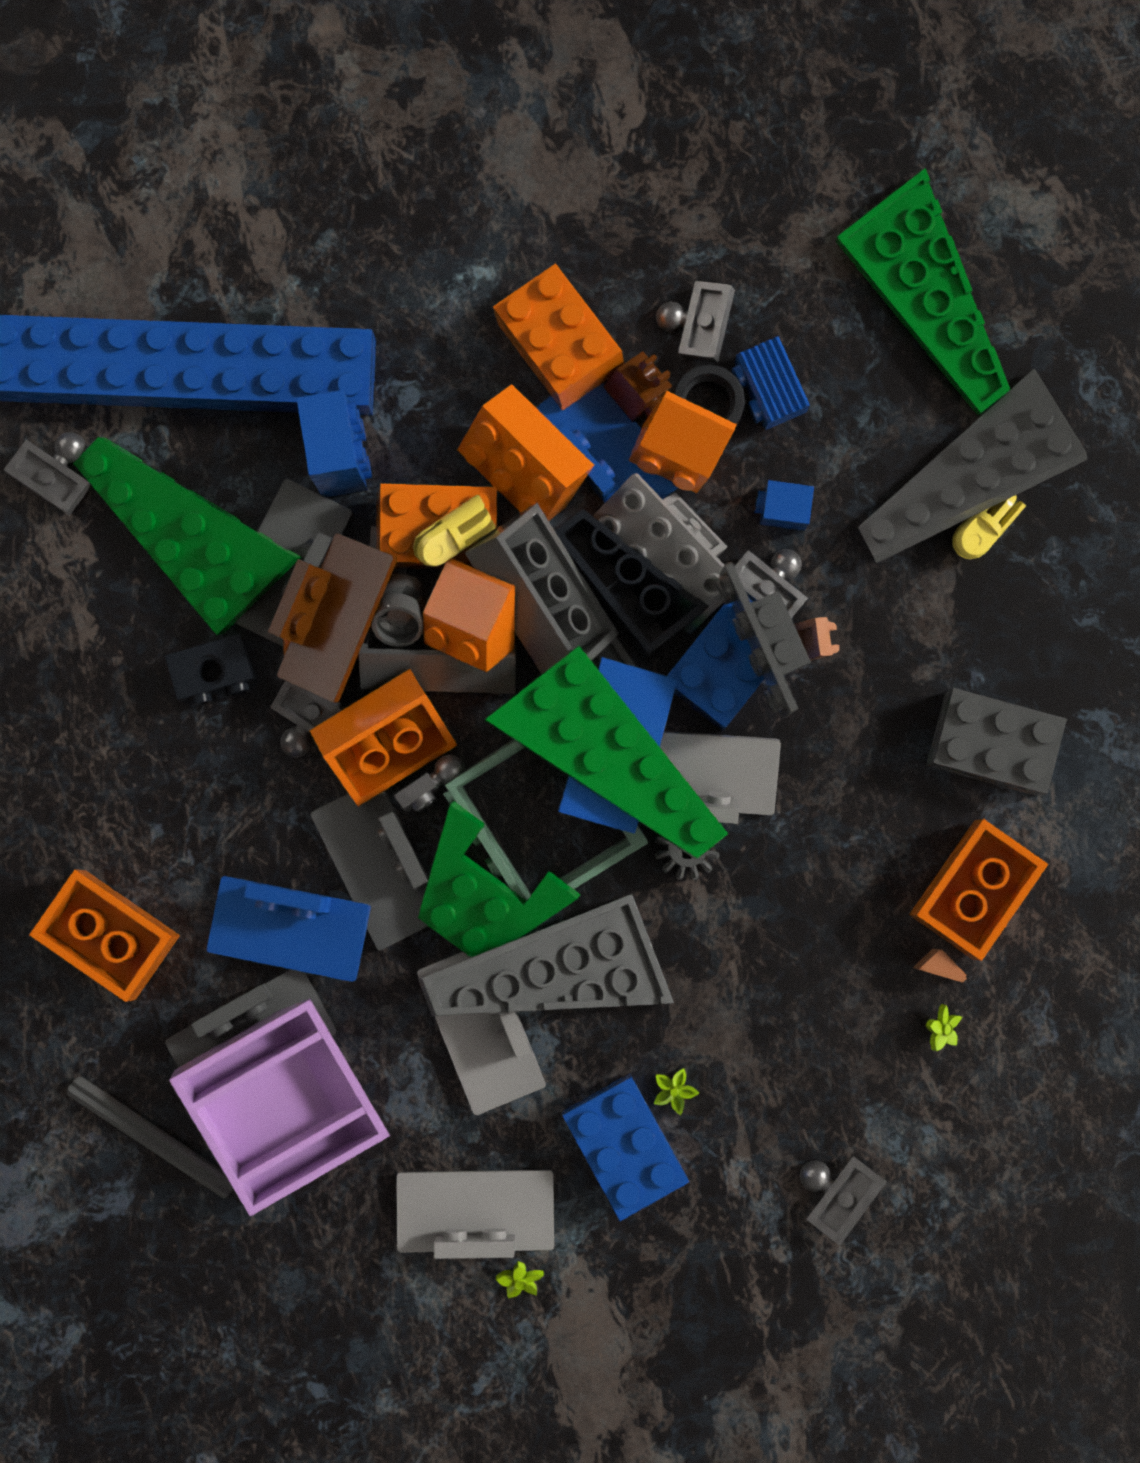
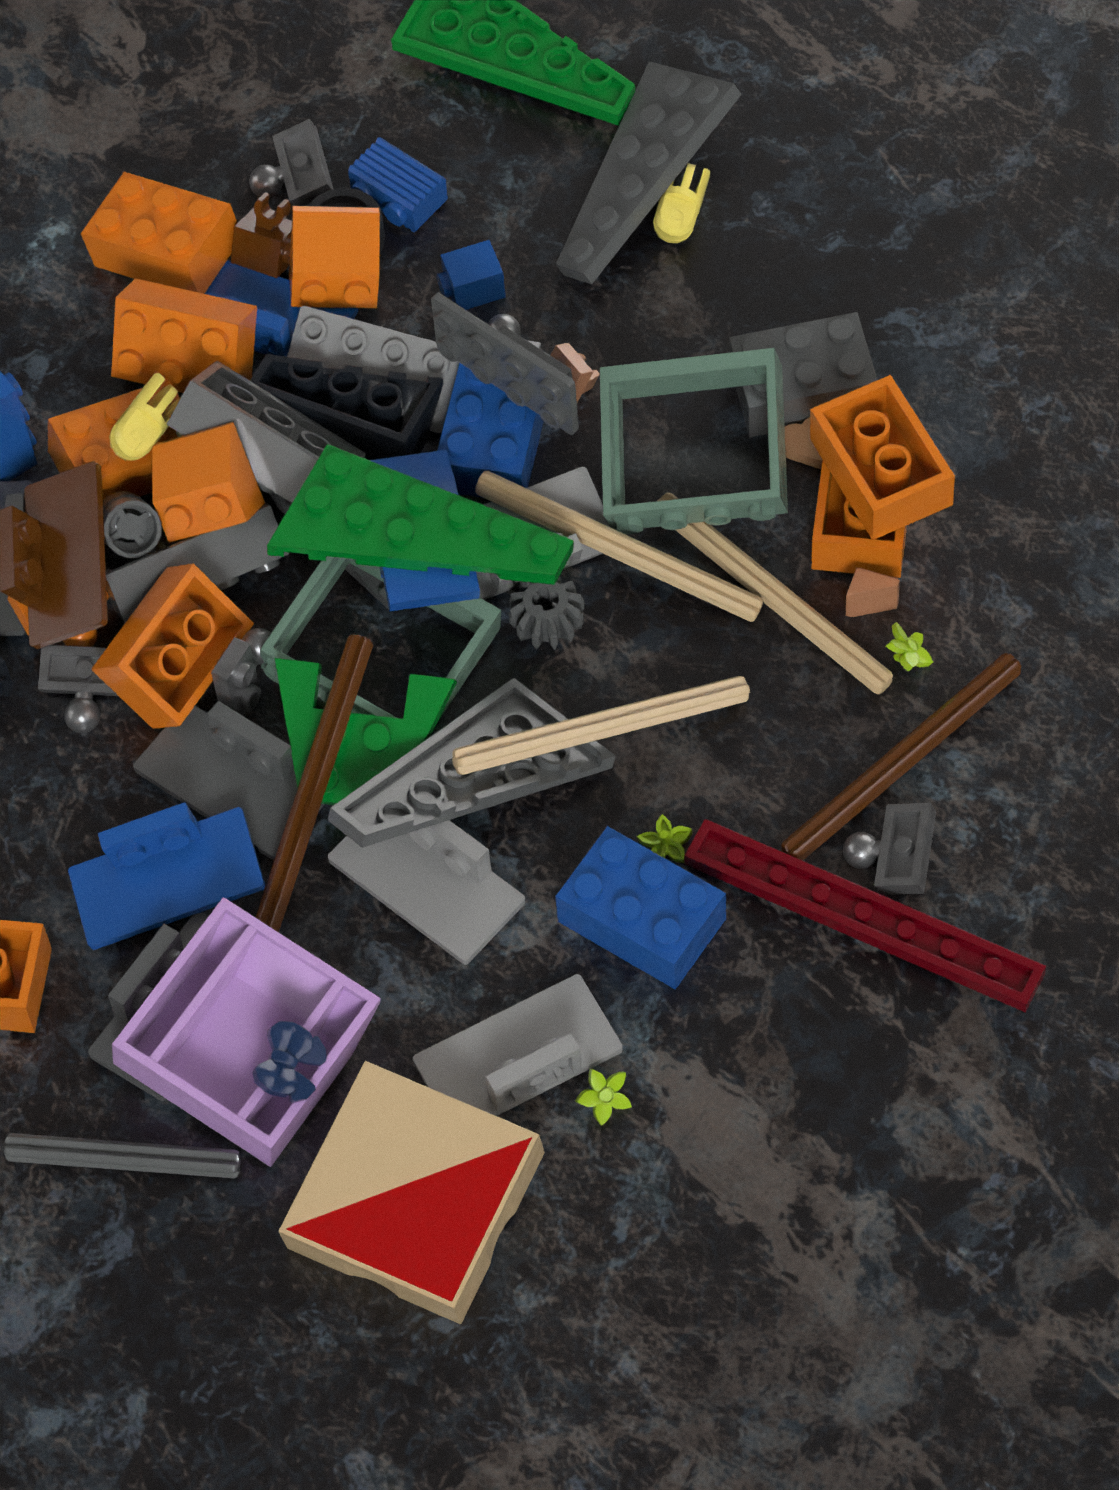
camera: 20 degrees left, 25 degrees down
(280, 1169) = (289, 1046): none -> dark blue piece
(340, 1294) = (412, 1191): none -> tile
(428, 924) = (314, 781): none -> reddish brown axle
(672, 983) = (600, 725): none -> tan axle
(769, 824) = (619, 546): none -> tan axle
(787, 1237) = (865, 915): none -> dark red plate
(826, 823) = (684, 376): none -> sand green window
(868, 920) = (787, 604): none -> tan axle
(887, 1117) = (902, 757): none -> reddish brown axle
(968, 799) = (799, 446): none -> medium nougat tile
(1008, 886) = (881, 457): none -> orange brick

